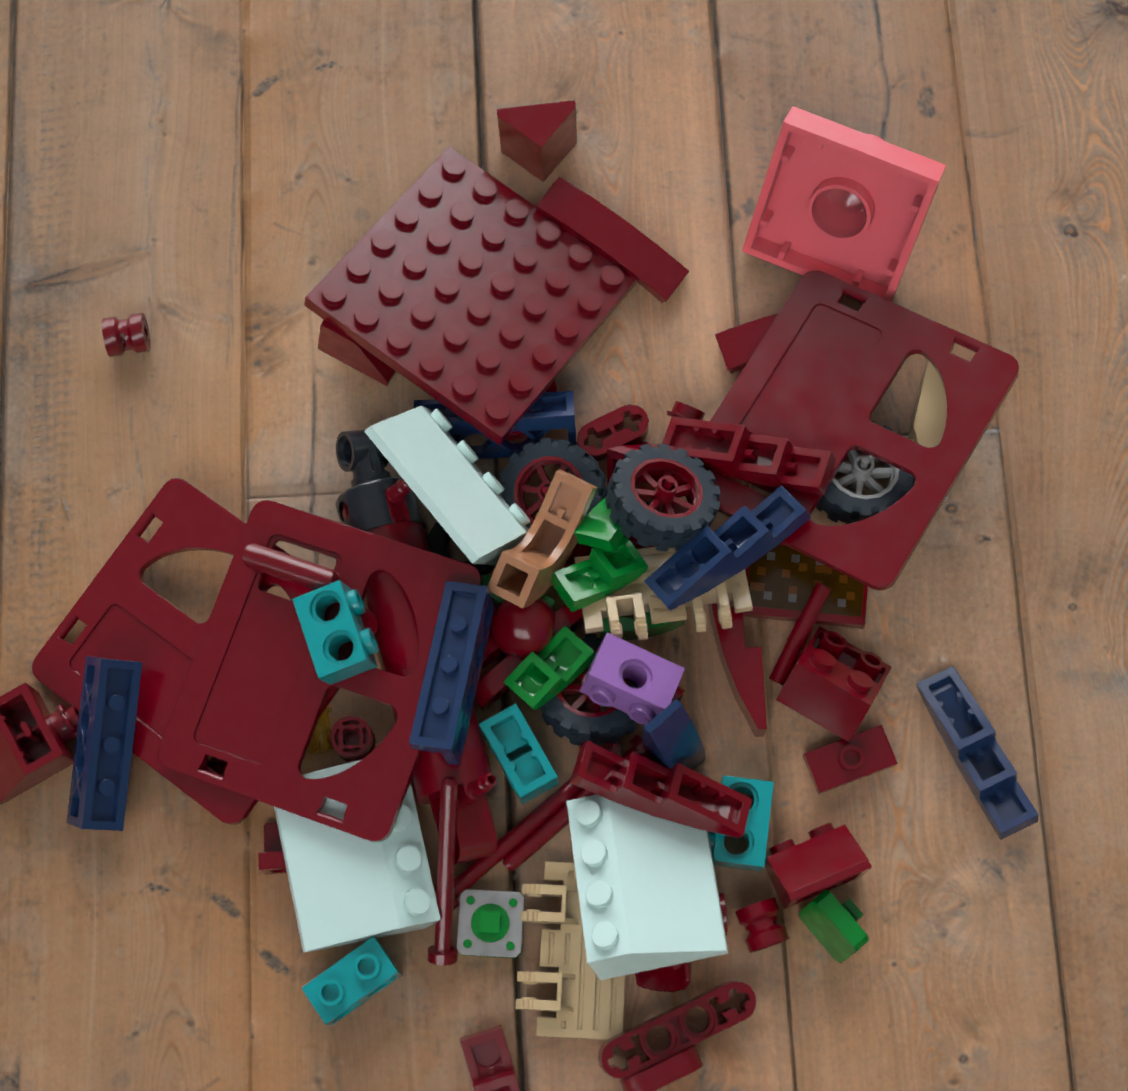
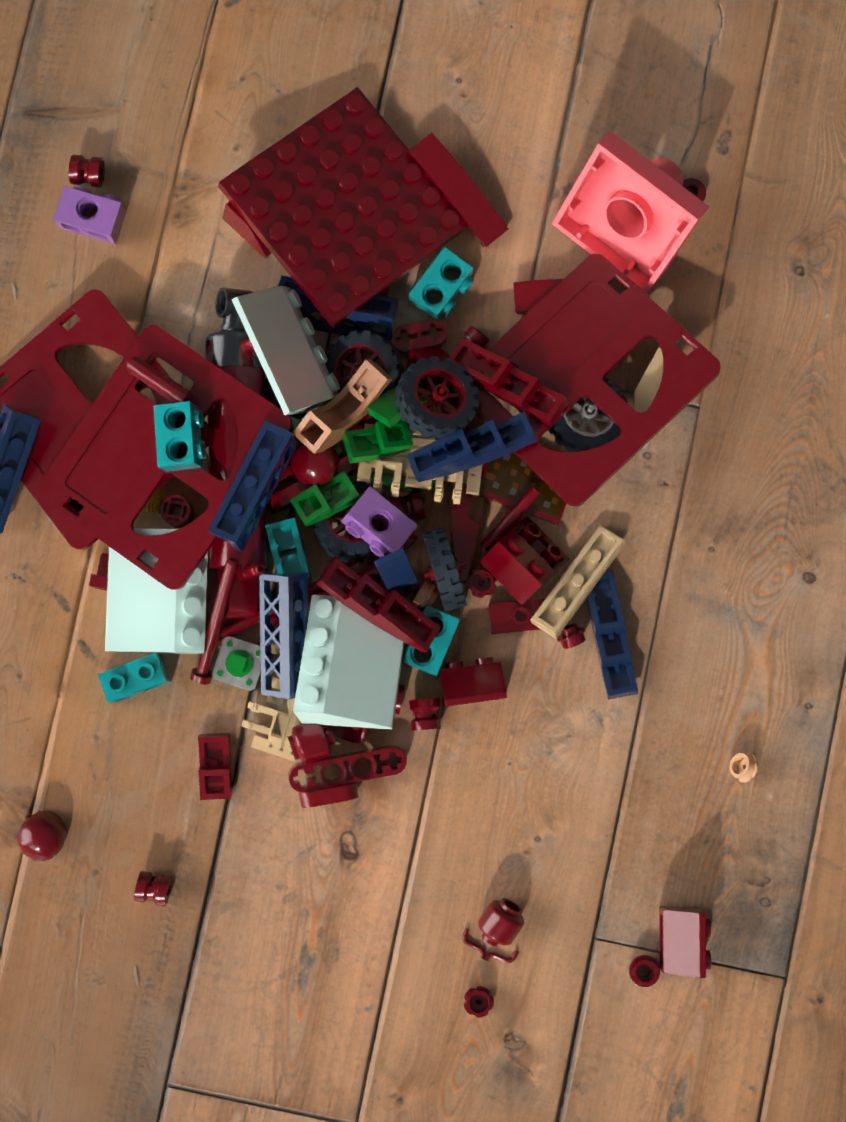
camera: 15 degrees right, 10 degrees up
(163, 399) = (102, 226): none -> medium lavender brick
(538, 135) = (425, 96): dark red slope -> none
(553, 854) = (292, 611): none -> dark blue fence
(617, 359) = (435, 282): none -> teal brick
(619, 1003) = (311, 742): none -> dark red head
(666, 646) = (413, 503): none -> dark red wheel
(717, 762) = (426, 594): none -> light nougat plate
(735, 719) = (444, 569): none -> black wheel
(793, 720) = (473, 585): none -> dark red plate
(835, 925) = (474, 727): green piece -> none
(913, 693) = (578, 581): none -> tan tile
(926, 767) = (571, 636): none -> dark red plate

